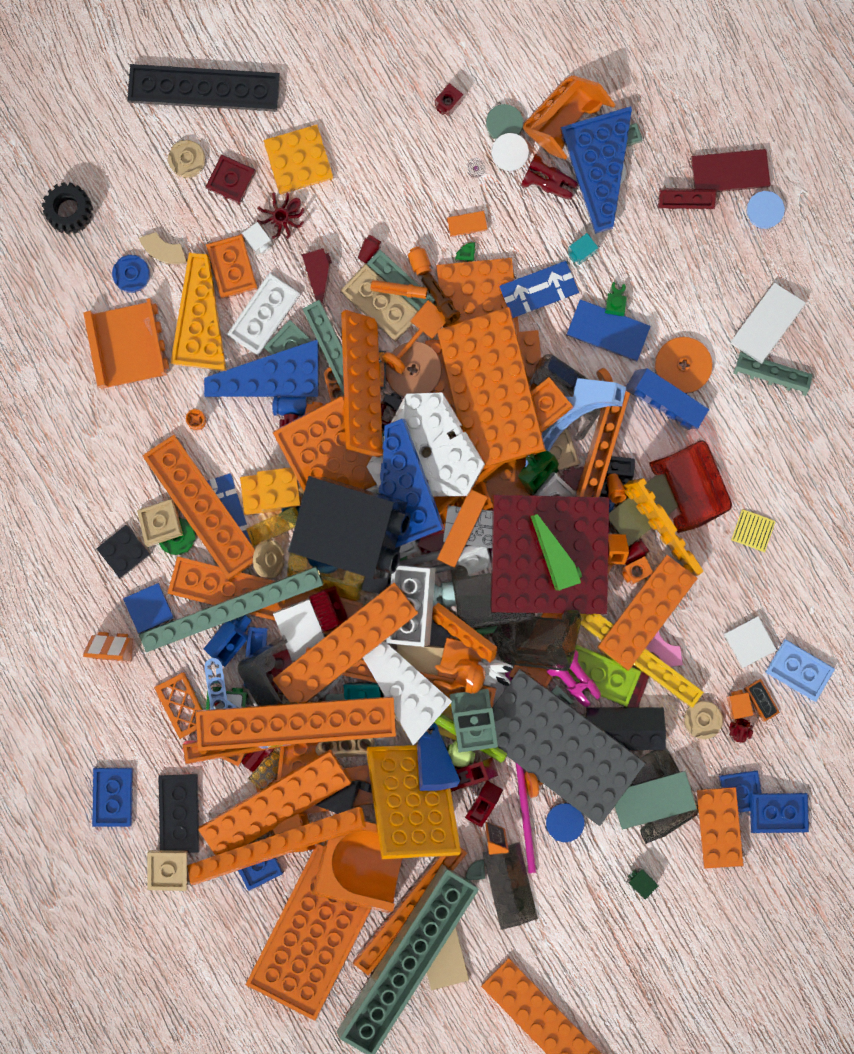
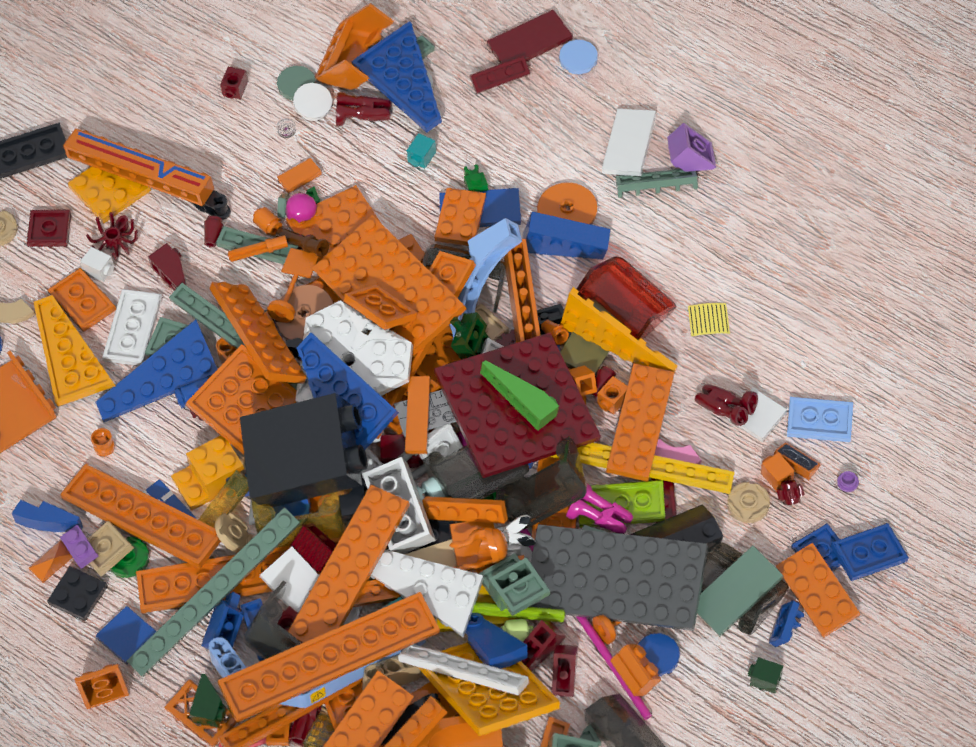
camera: 20 degrees left, 25 degrees down
(114, 511) = (51, 562): none -> orange slope
(122, 470) = (45, 517): none -> blue slope
(139, 512) = (79, 546): none -> medium lavender plate
(186, 705) = (207, 705): none -> dark green slope
(329, 158) = (139, 166): none -> orange brick
(377, 218) = (215, 206): none -> black piece
(389, 310) = (258, 273): tan tile -> none
(400, 781) = (464, 669): none -> white tile
(439, 248) = (282, 201): none -> sand green tile
(453, 263) = (300, 207): none -> dark pink hair
(472, 416) = (380, 306): none -> orange plate
(496, 839) = (591, 695): slope -> none
(539, 289) = (396, 199): blue sticker -> none
(540, 832) = (636, 669): none -> orange brick
(586, 334) = (460, 216): none -> orange plate
(678, 845) = (785, 622): none -> blue plate
(727, 617) = (719, 400): none -> dark red piece
(793, 739) = (848, 481): none -> medium lavender plate
(817, 359) = (690, 150): none -> medium lavender slope

